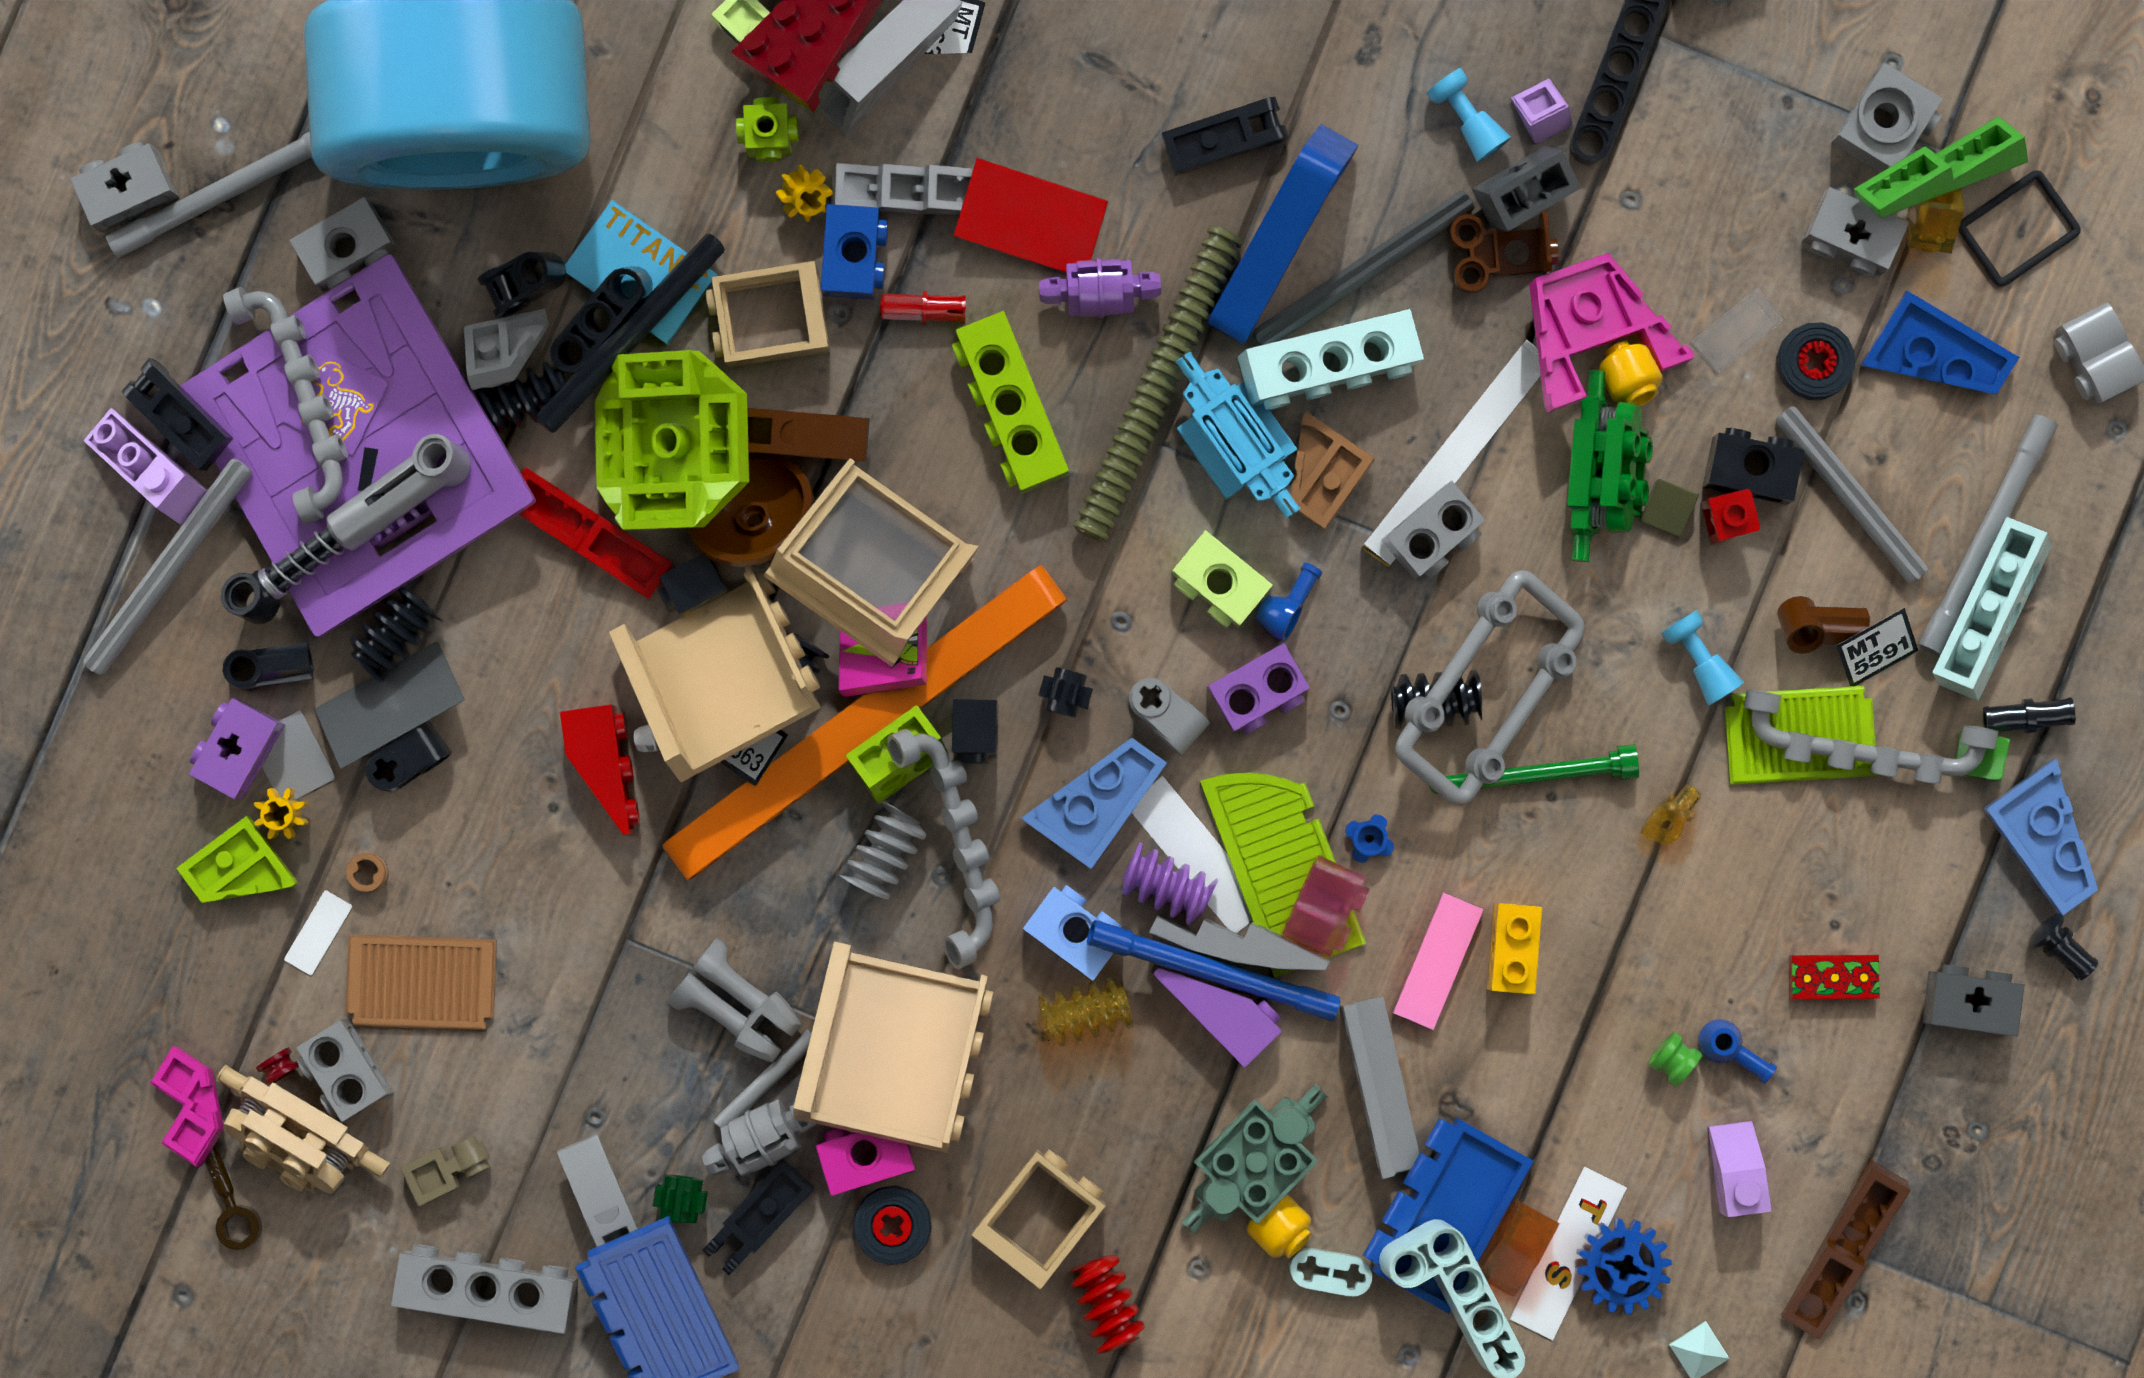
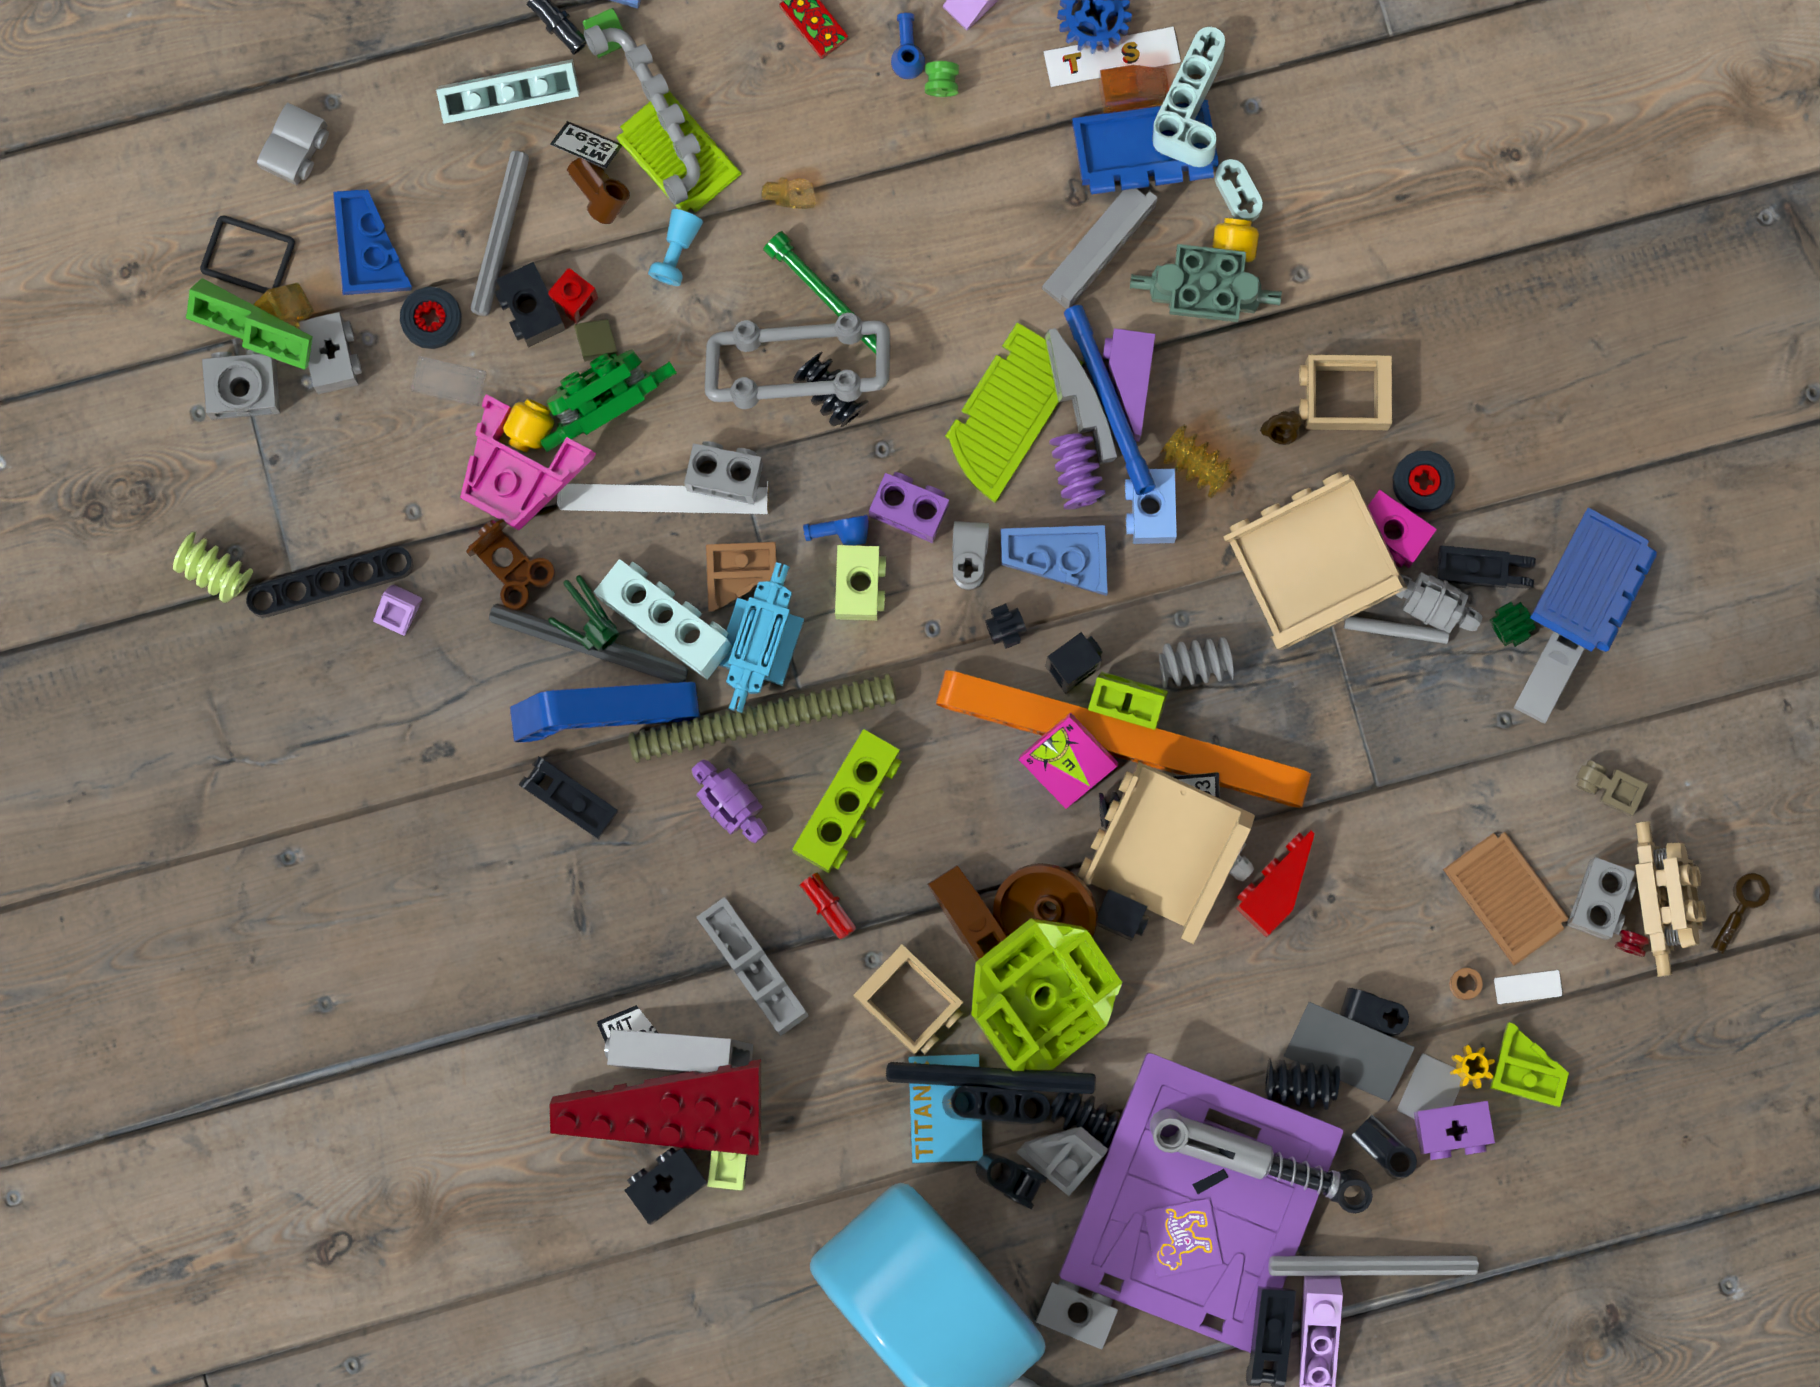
camera: 130 degrees left, 5 degrees down
(200, 1119) = (1705, 966): dark pink tile -> none
(313, 409) = (1182, 1272): light grey bar -> none
(416, 1289) = (1667, 682): light grey brick -> none
(593, 536) = (1138, 1003): red slope -> none
(695, 994) = (1351, 716): light grey piece -> none
(769, 145) = (800, 1104): lime brick -> none
(797, 183) = (813, 1039): yellow gear -> none
(845, 226) = (817, 997): blue brick -> none
(869, 562) = (1020, 806): piece -> none
(967, 854) = (1155, 607): light grey bar -> none
(1029, 216) = (717, 882): red sticker -> none
(1055, 1125) = (1282, 427): none -> dark brown piece
(1107, 1303) = (1365, 309): red piece -> none
(1190, 843) = (1039, 477): white sticker -> none
(1324, 906) = (1014, 362): clear pink brick -> none
(1365, 285) = (599, 629): none -> dark green plant
(1380, 844) = (947, 359): blue plate -> none
(1437, 961) = (993, 269): bright pink tile -> none
(1479, 129) = (441, 638): medium azure piece -> none
(1514, 948) = (949, 226): yellow brick -> none
(1526, 188) = (458, 577): dark grey brick -> none
(2028, 454) = (389, 143): light grey piece -> none

